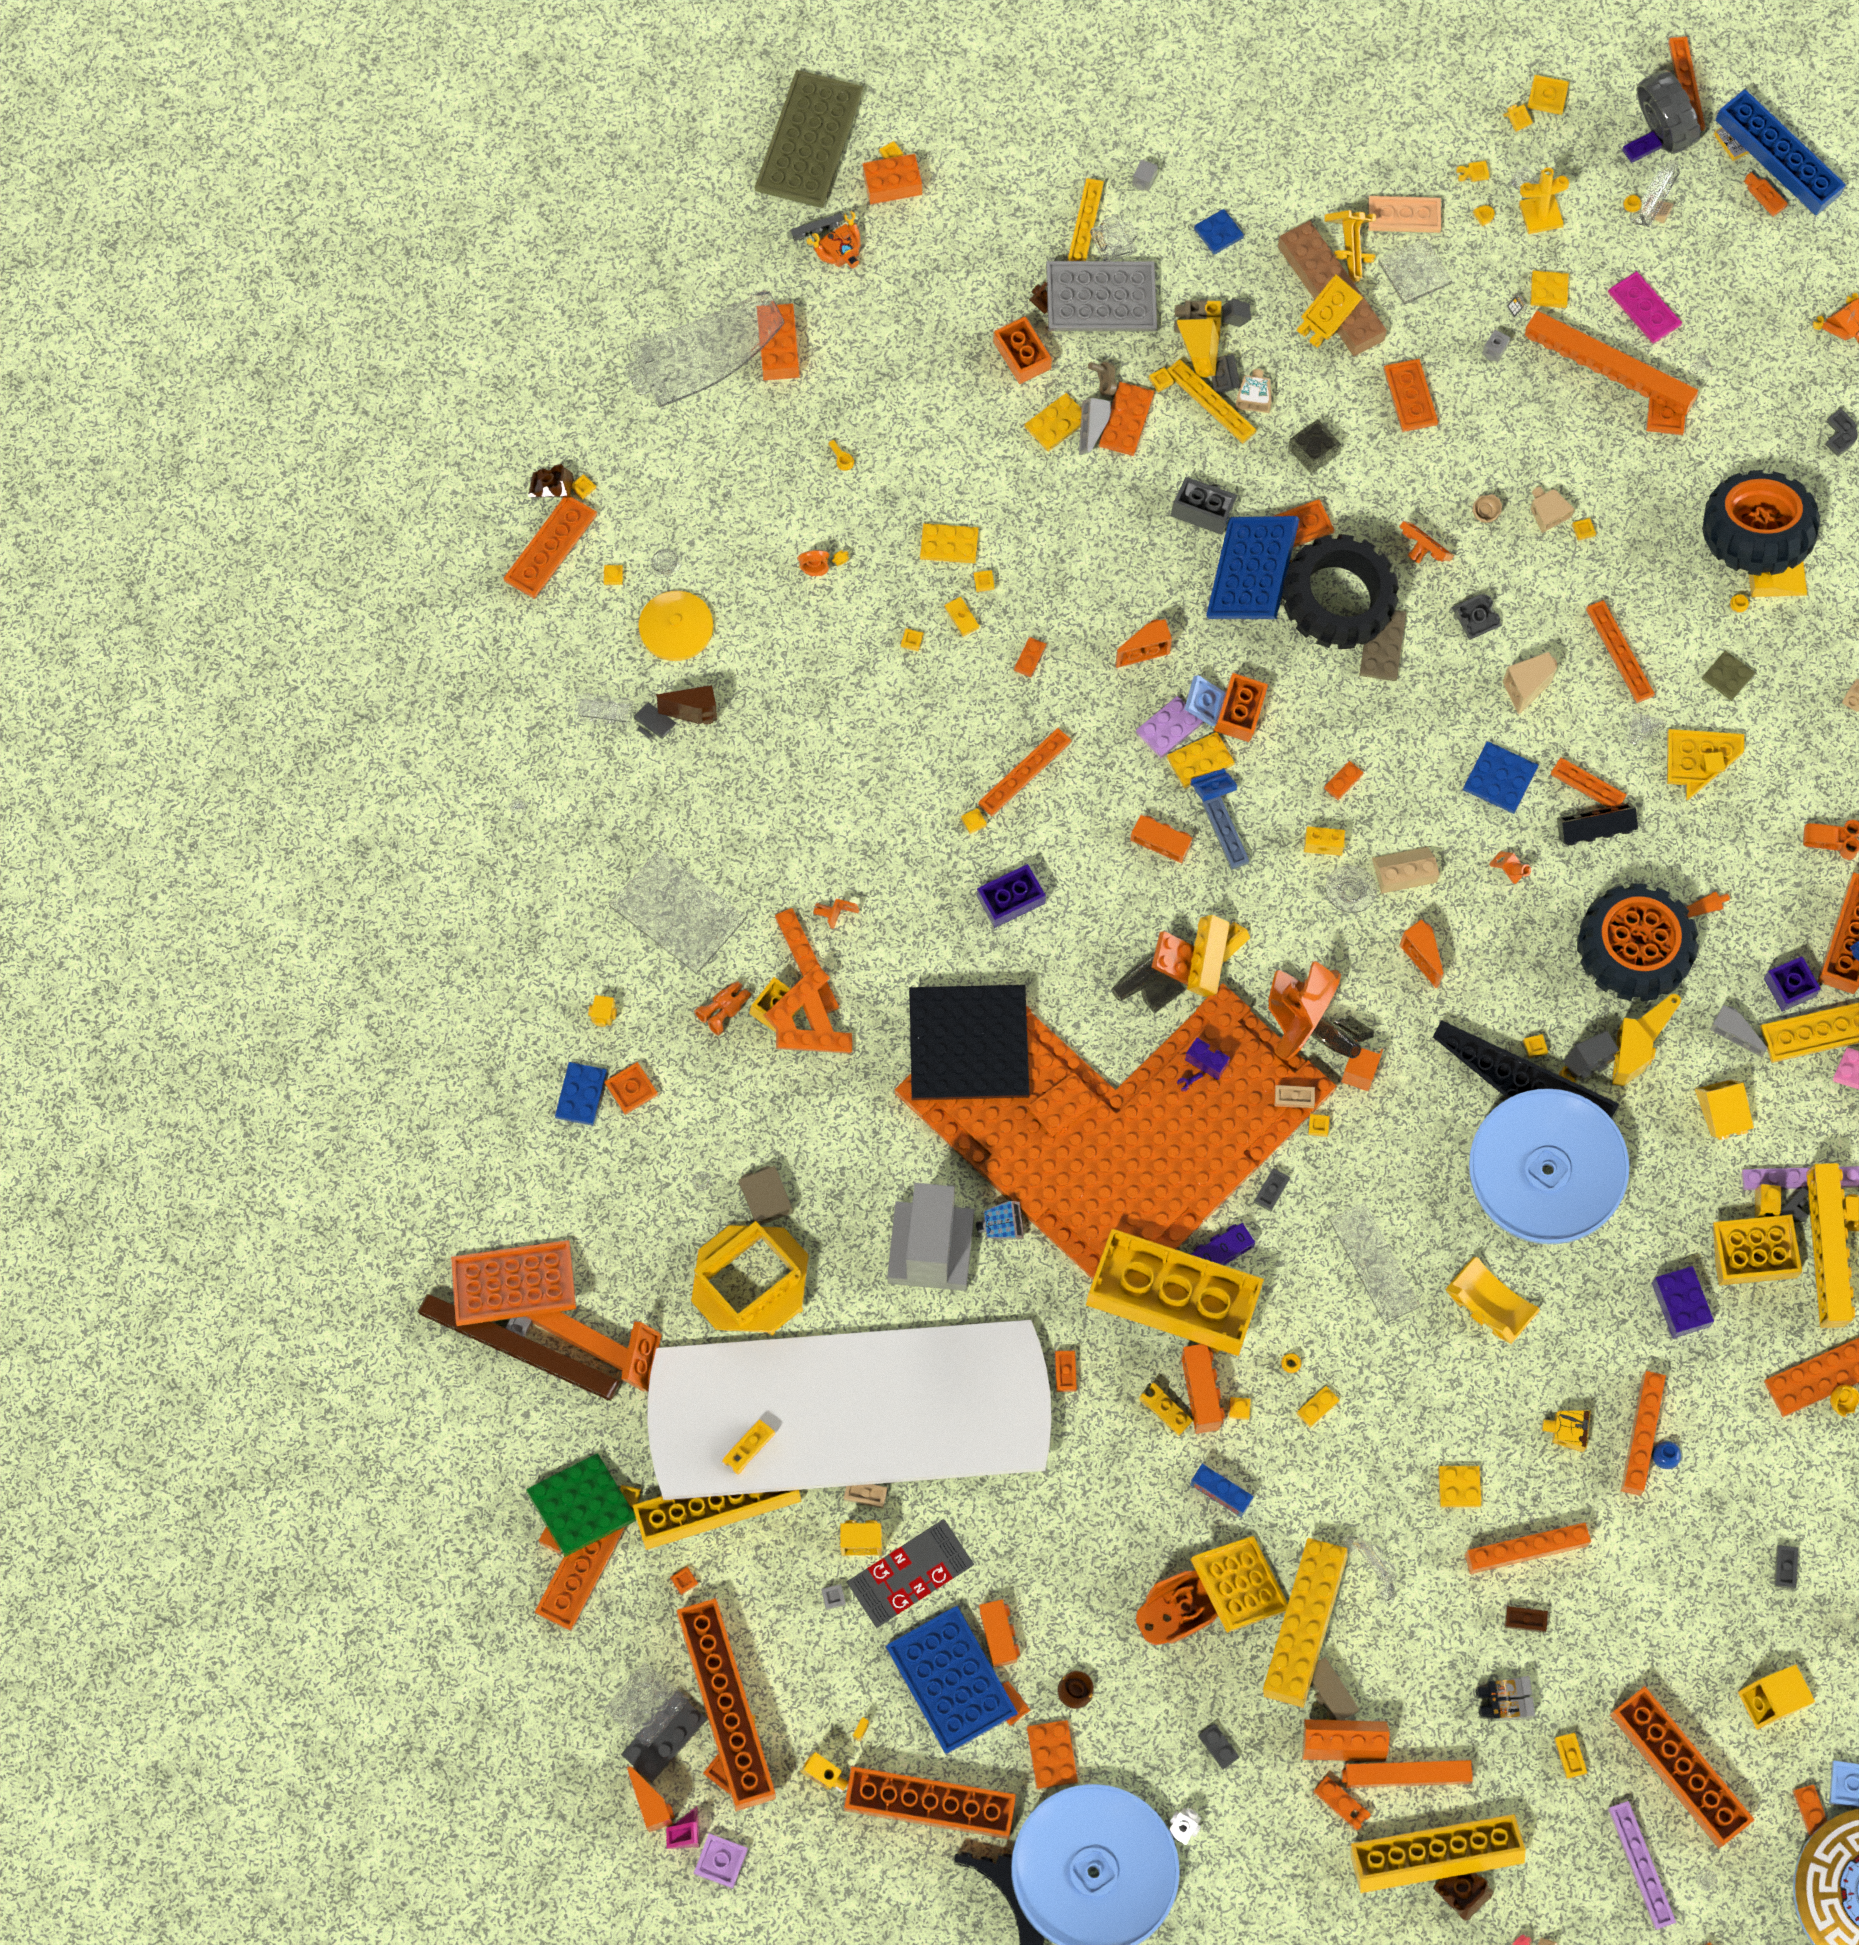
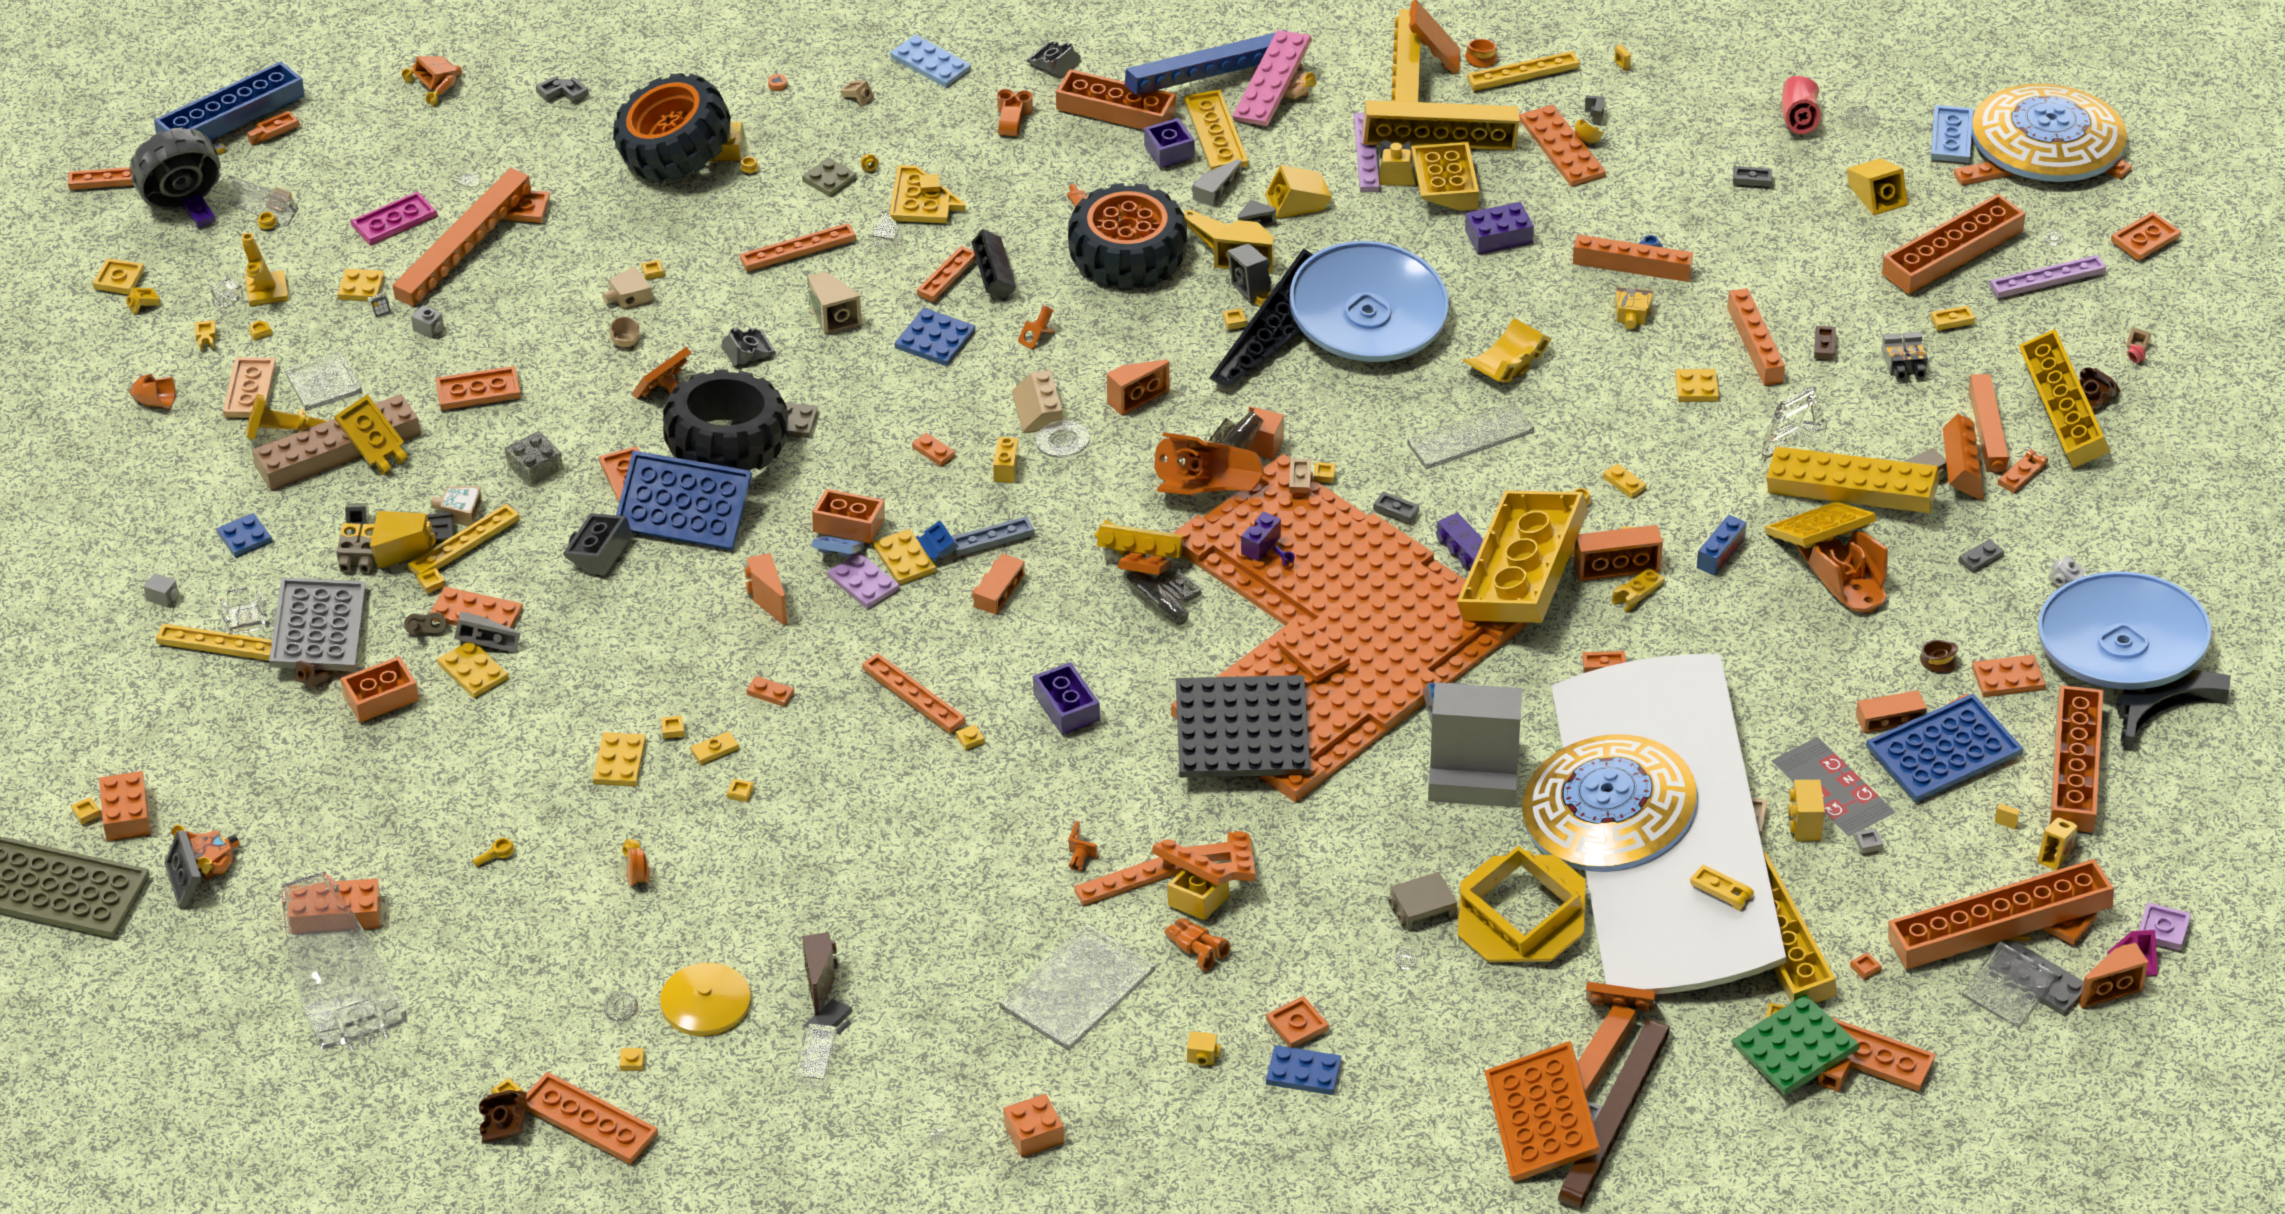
camera: 90 degrees left, 25 degrees down
(523, 877) = (1033, 1125): none -> orange brick
(880, 1391) = (1615, 830): none -> dish
(1391, 141) = (154, 391): none -> orange helmet
(1688, 1065) = (1258, 212): none -> dark grey slope
(1748, 709) = (866, 159): none -> yellow plate

